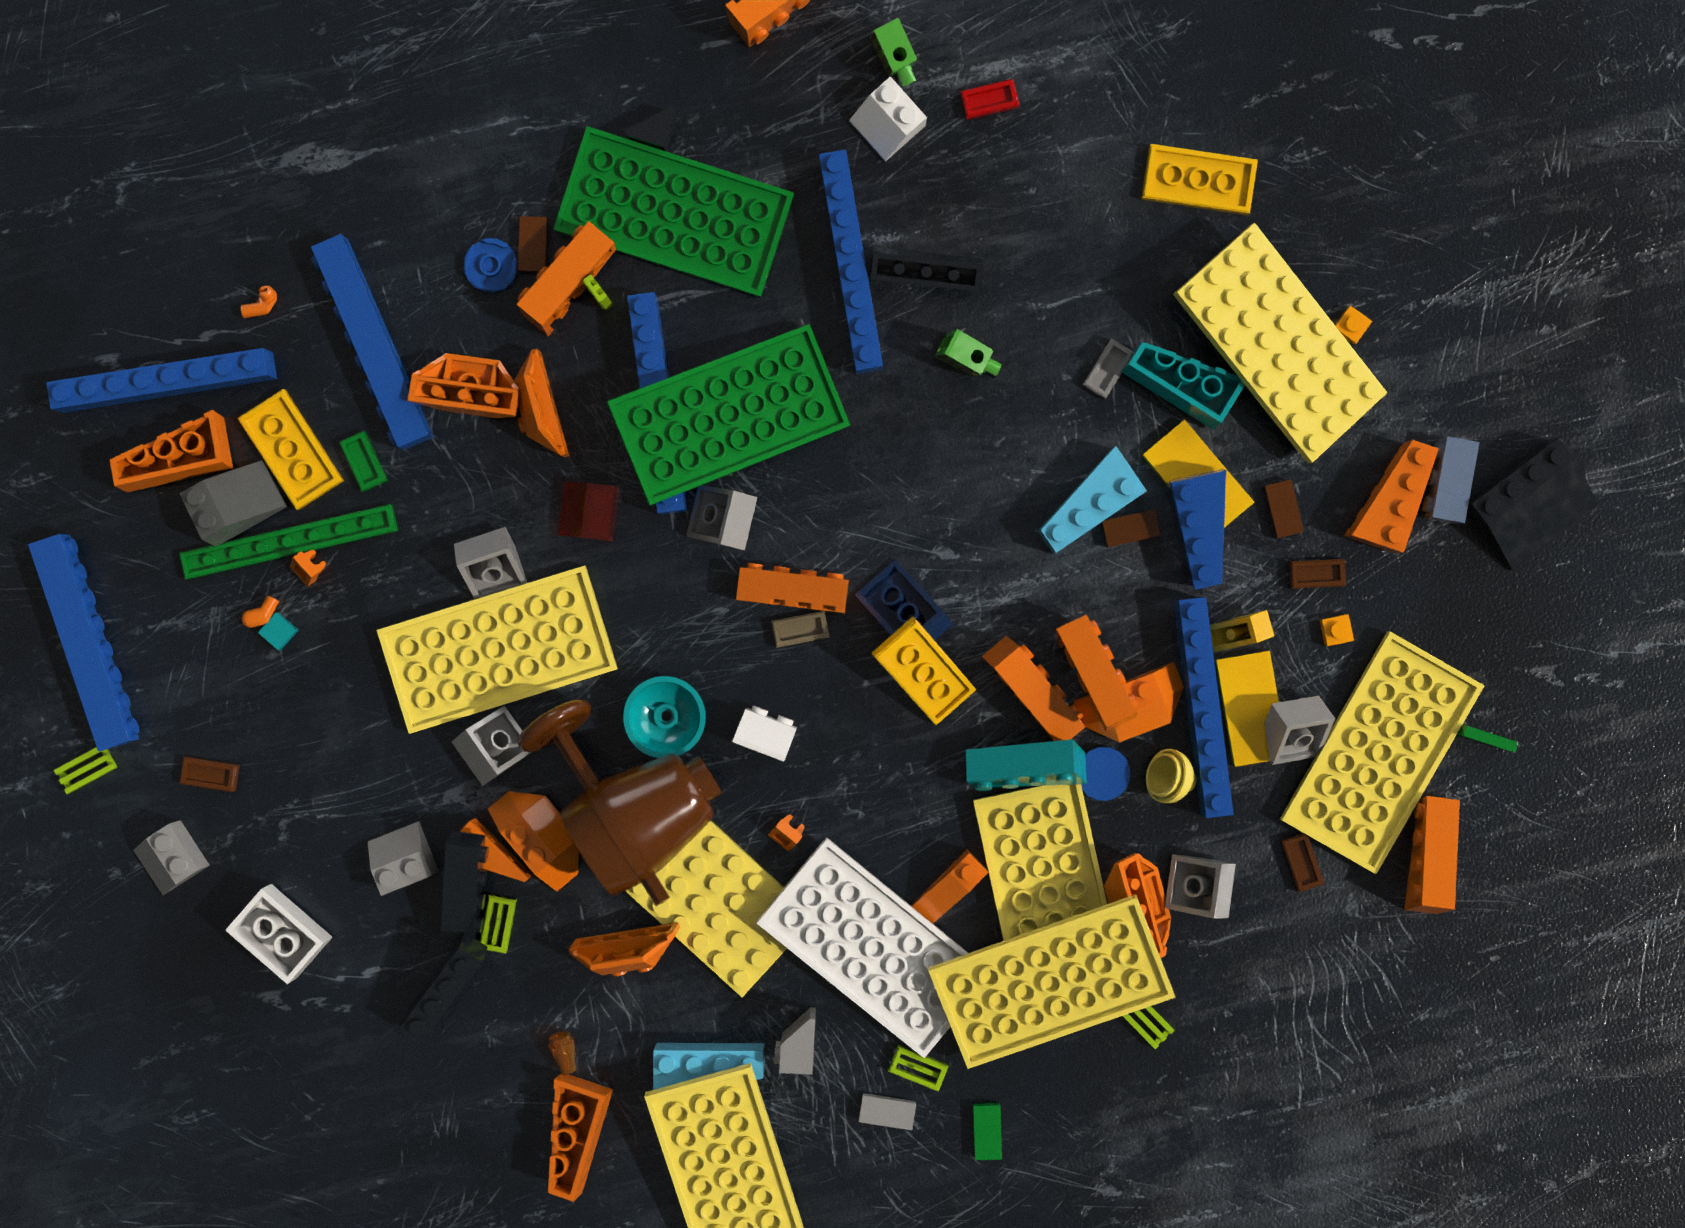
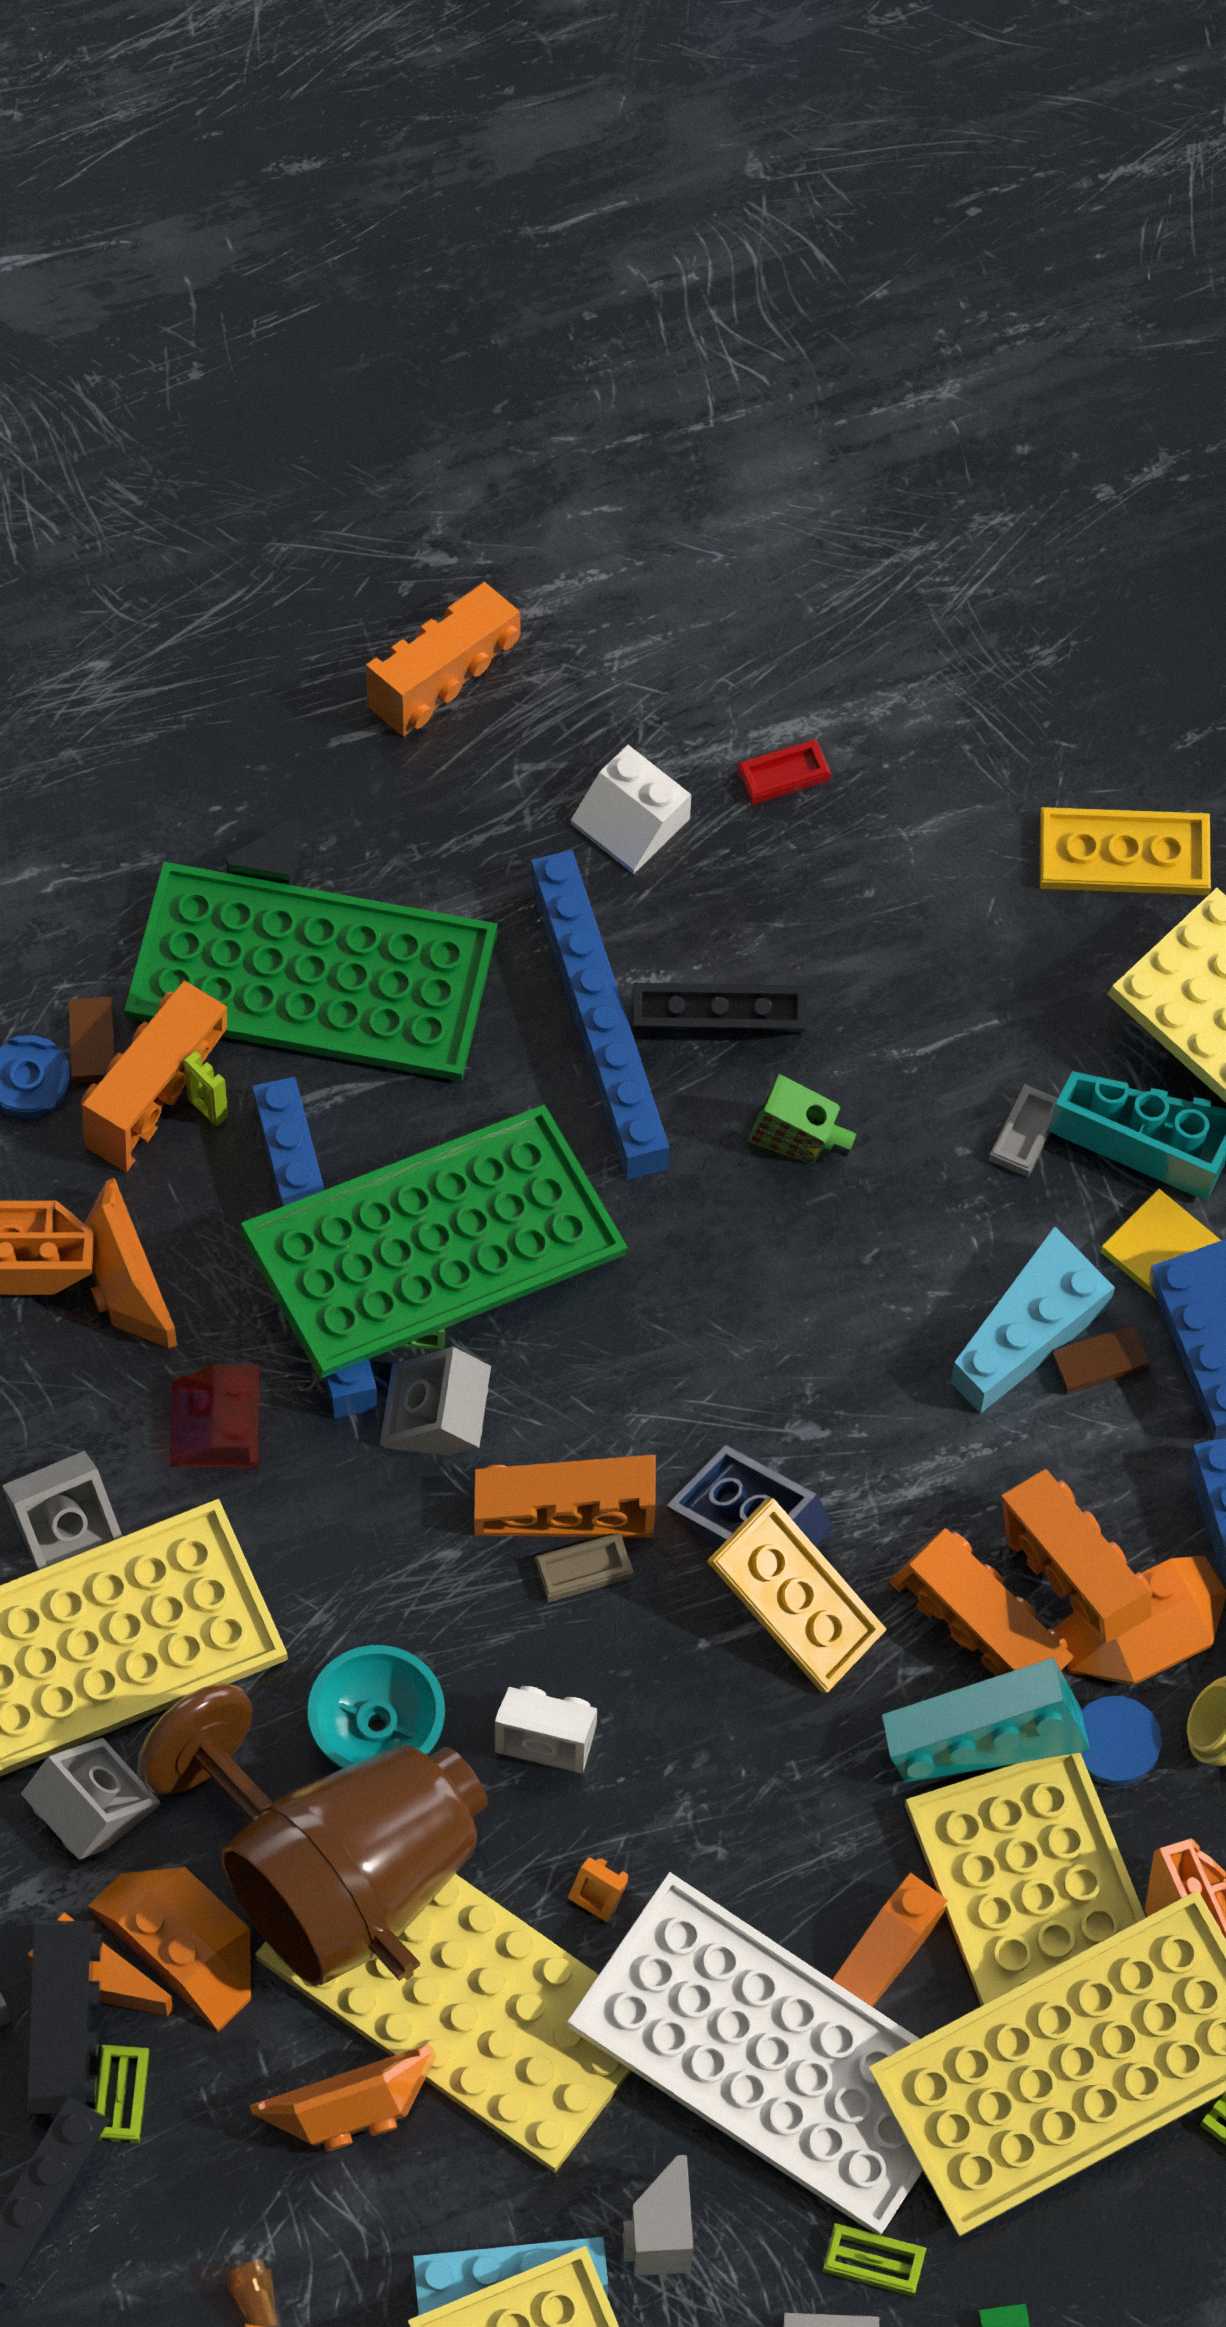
camera: 10 degrees left, 25 degrees down
(892, 40) = (628, 711): bright green torso -> none

